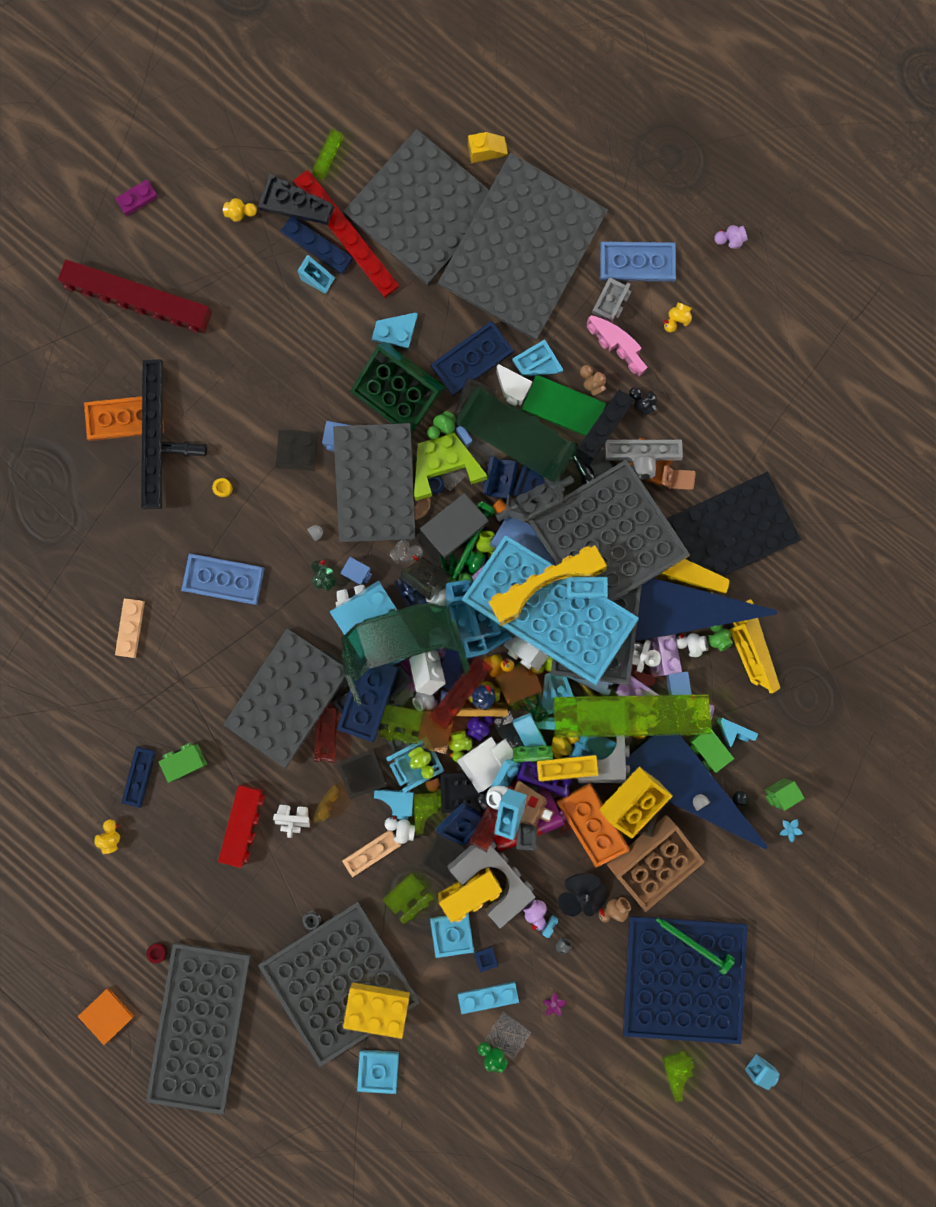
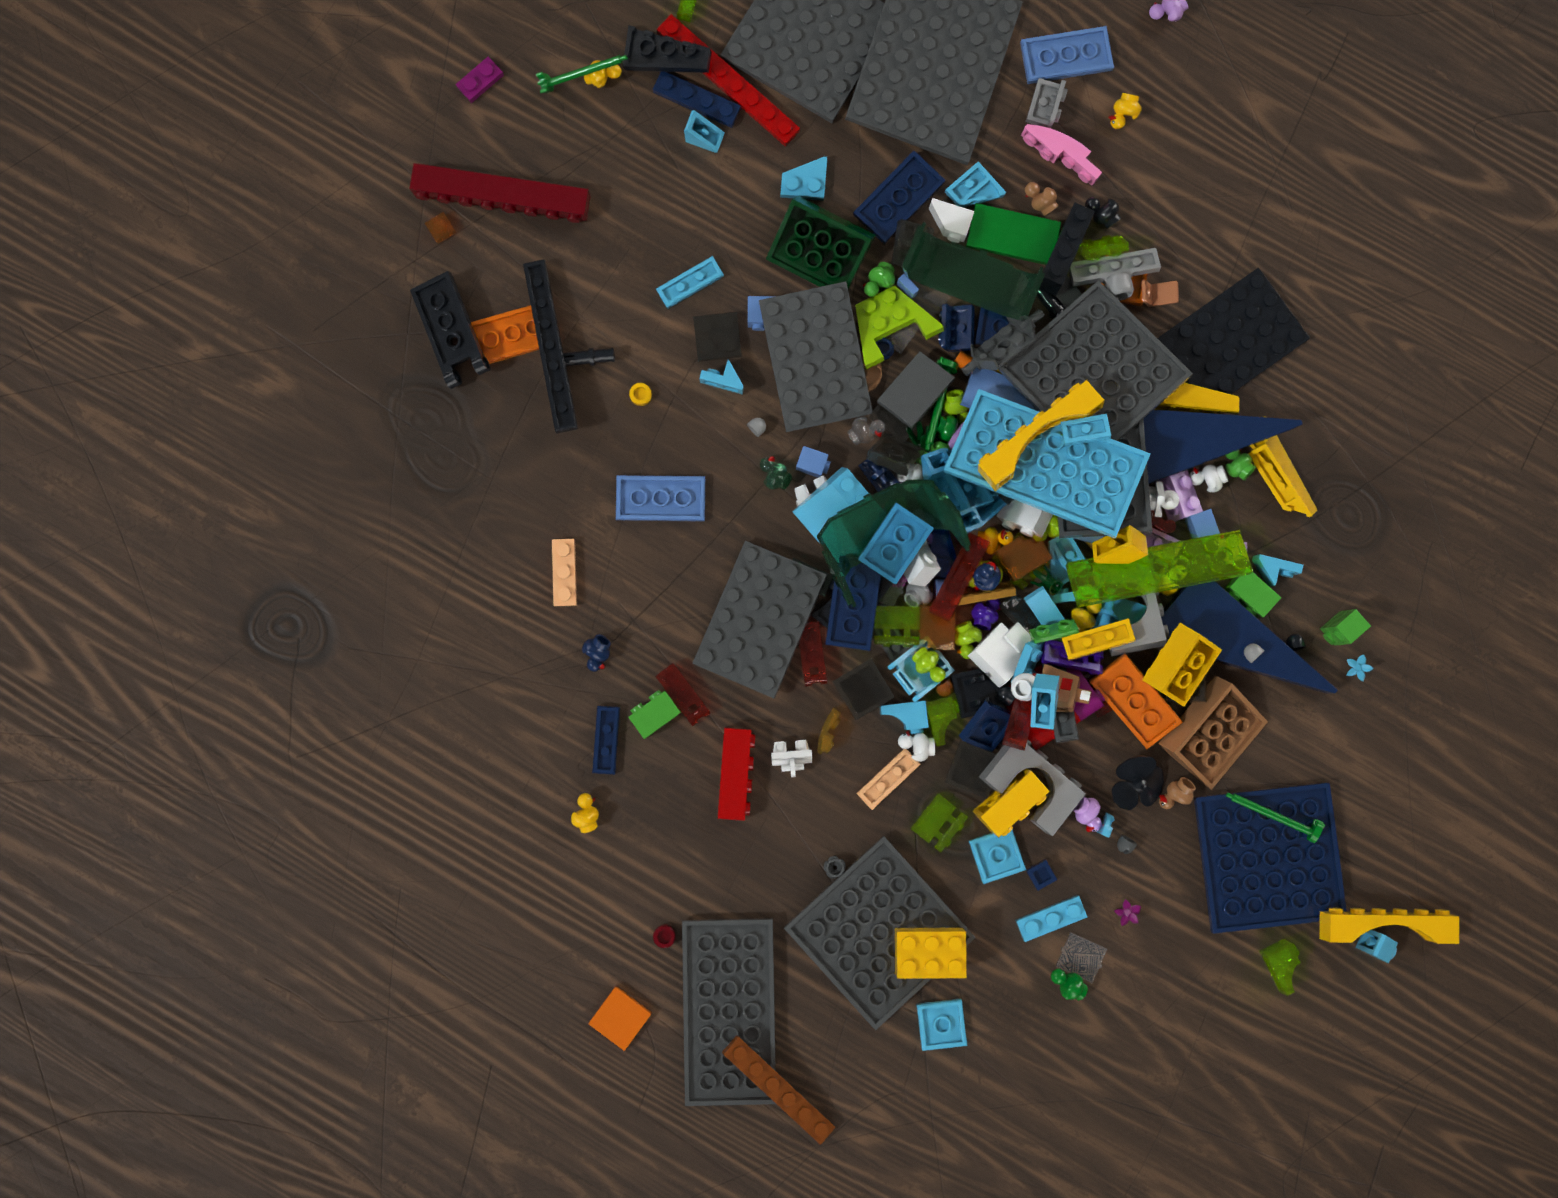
camera: 15 degrees left, 0 degrees up
(68, 396) = (447, 319): none -> black hinge
(80, 317) = (440, 227): none -> clear orange plate
(144, 700) = (598, 651): none -> dark blue animal
(193, 210) = (547, 83): none -> green piece
(209, 749) = (682, 693): none -> clear red plate
(227, 1103) = (778, 1089): none -> dark orange plate
(281, 400) = (690, 282): none -> medium azure tile
(298, 489) = (729, 381): none -> medium azure slope
(409, 655) = (895, 543): none -> dark azure plate
(605, 693) = (1125, 549): none -> yellow slope
(641, 430) = (1107, 245): none -> clear neon green plate
(738, 1052) = (1348, 926): none -> yellow arch

